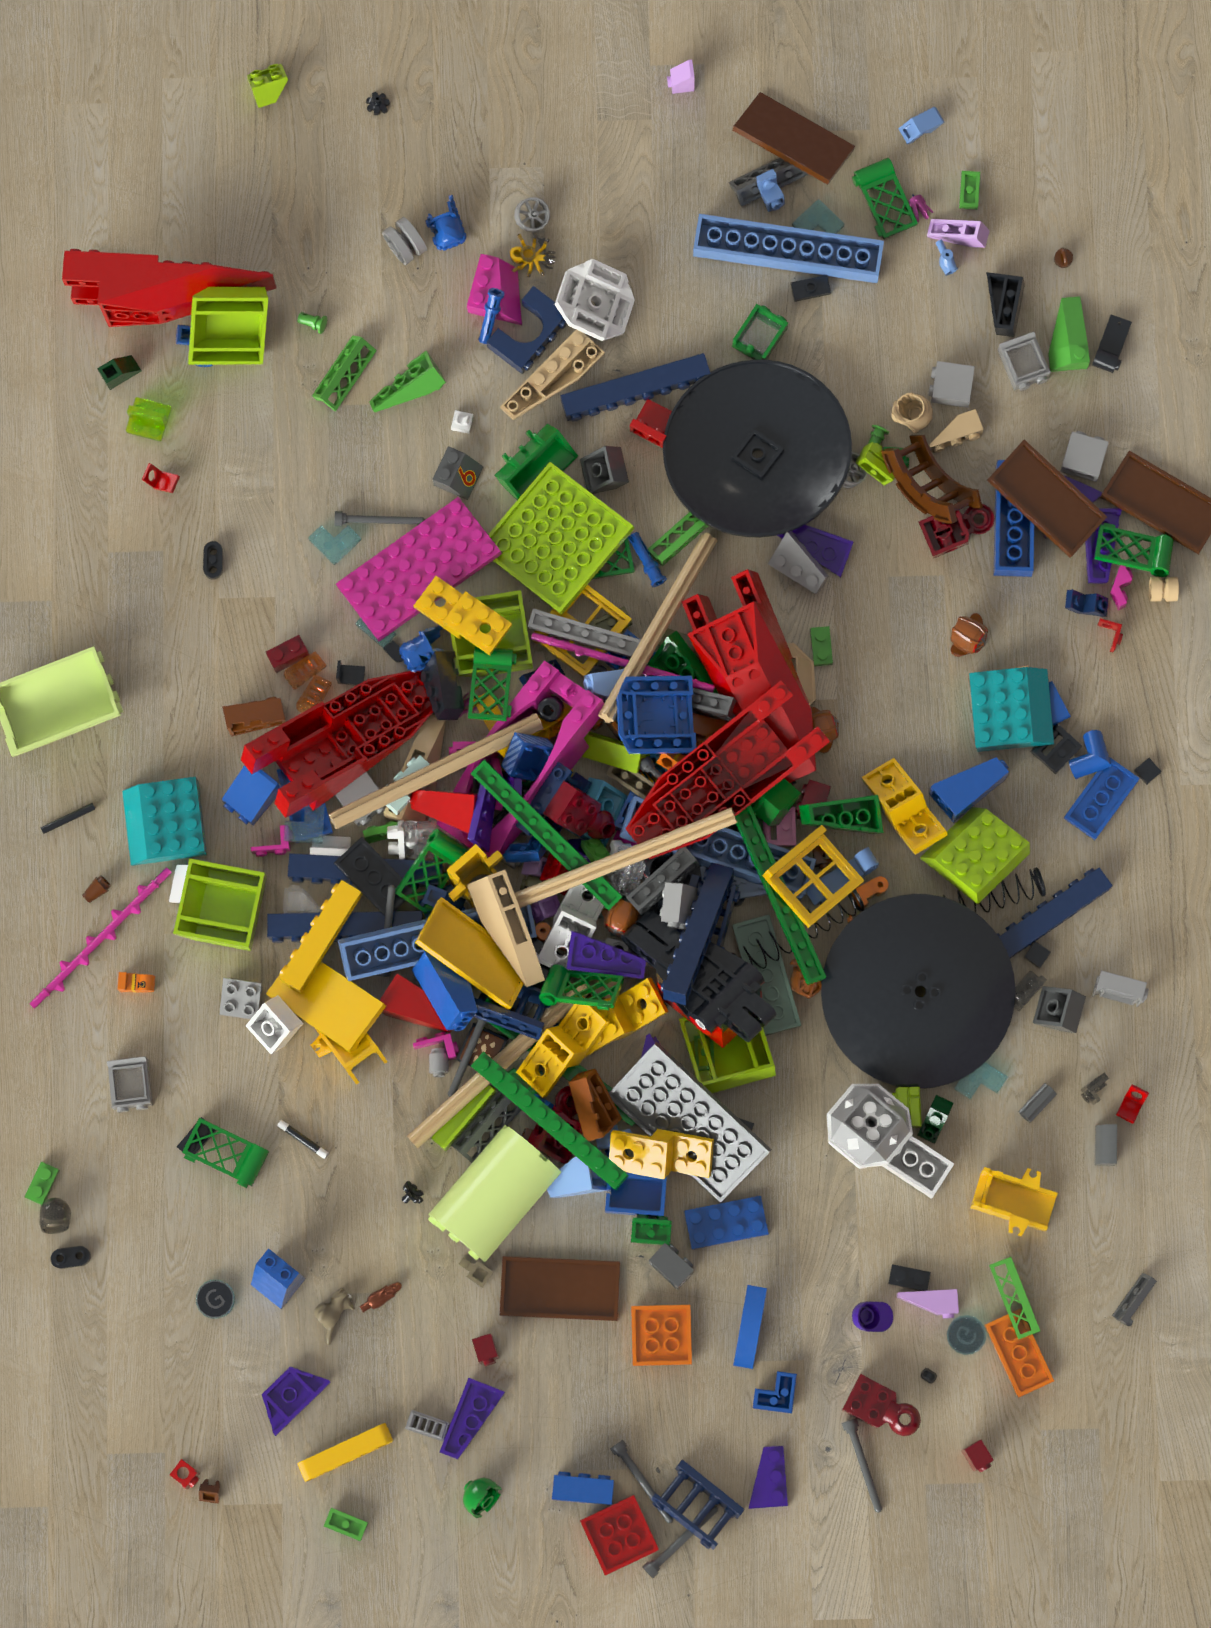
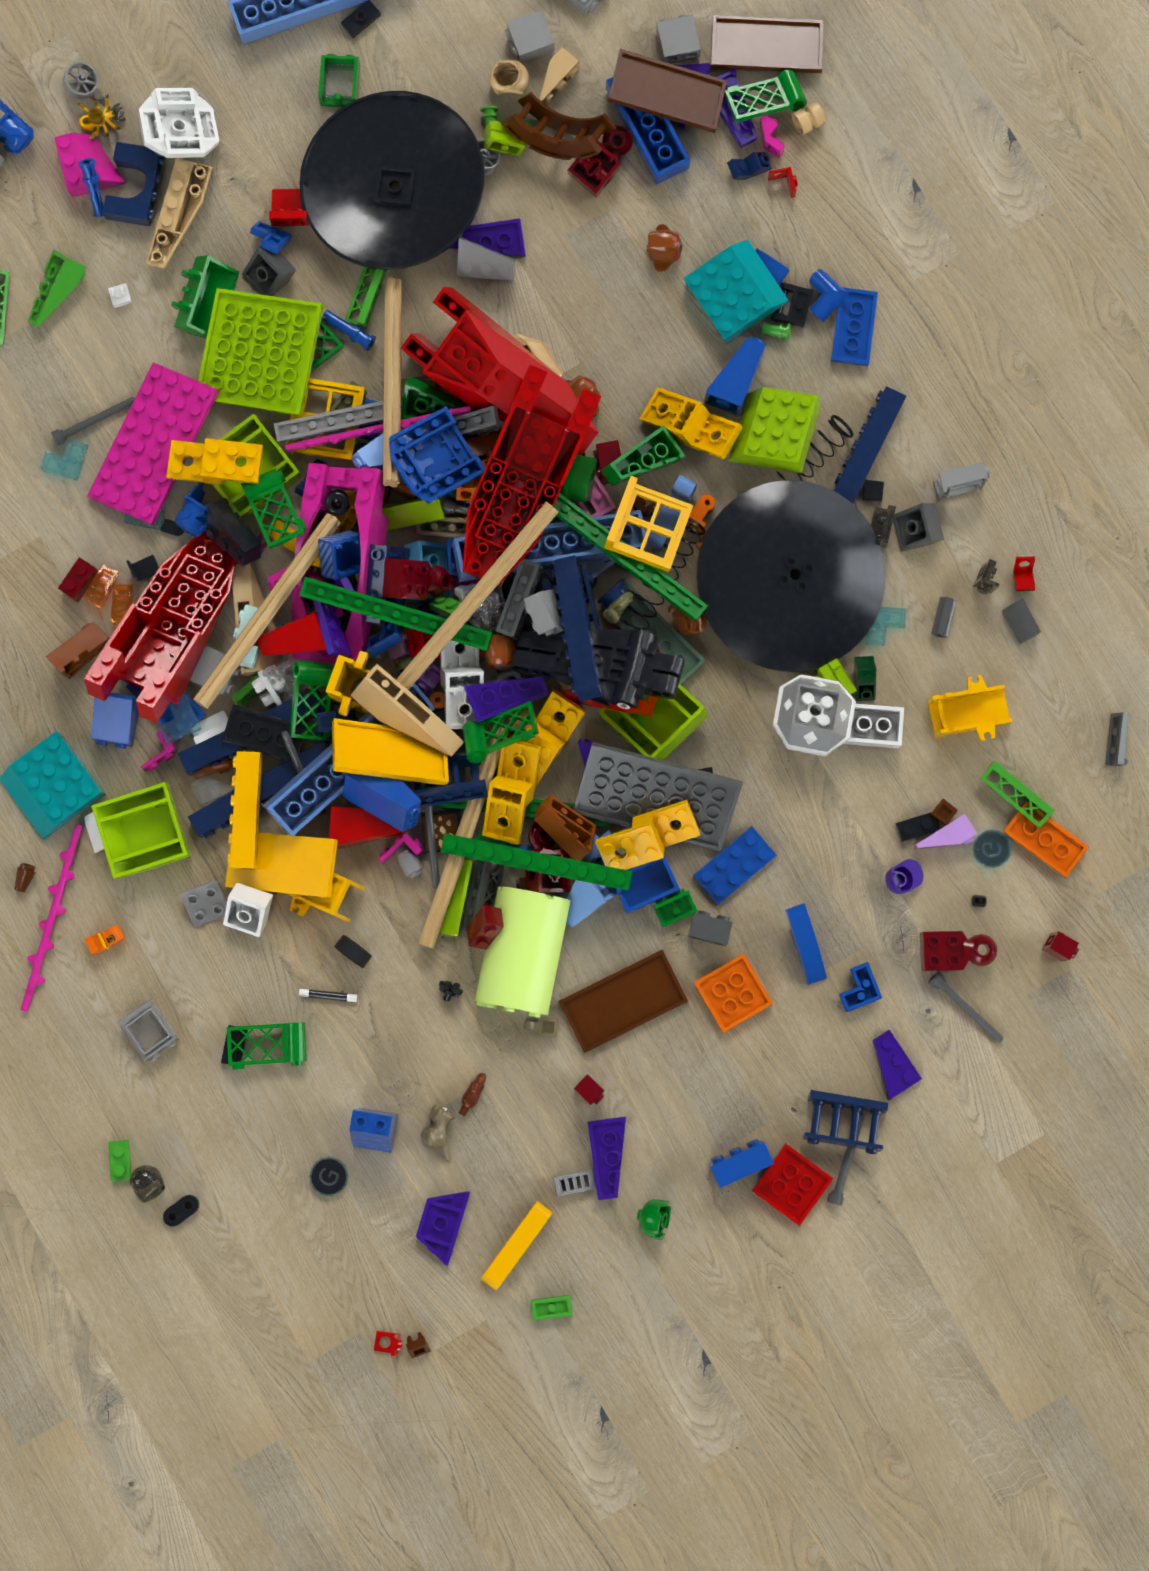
camera: 30 degrees left, 5 degrees up
(320, 887) = (221, 768): none -> reddish brown piece
(346, 1111) = (353, 951): none -> black tyre
(457, 473) = (140, 342): dark grey slope -> none
(472, 1153) = (485, 927): none -> dark red brick
(621, 1451) = (752, 1110): dark grey piece -> none
(625, 442) = (273, 238): none -> blue tile
(634, 387) = (254, 185): dark blue brick -> none
(748, 928) = (616, 601): none -> piece
(821, 646) = (542, 324): bright green plate -> none
(940, 1277) = (944, 812): none -> reddish brown tile
(1030, 765) = (777, 331): none -> bright green pin
(1147, 771) = (880, 282): black tile -> none

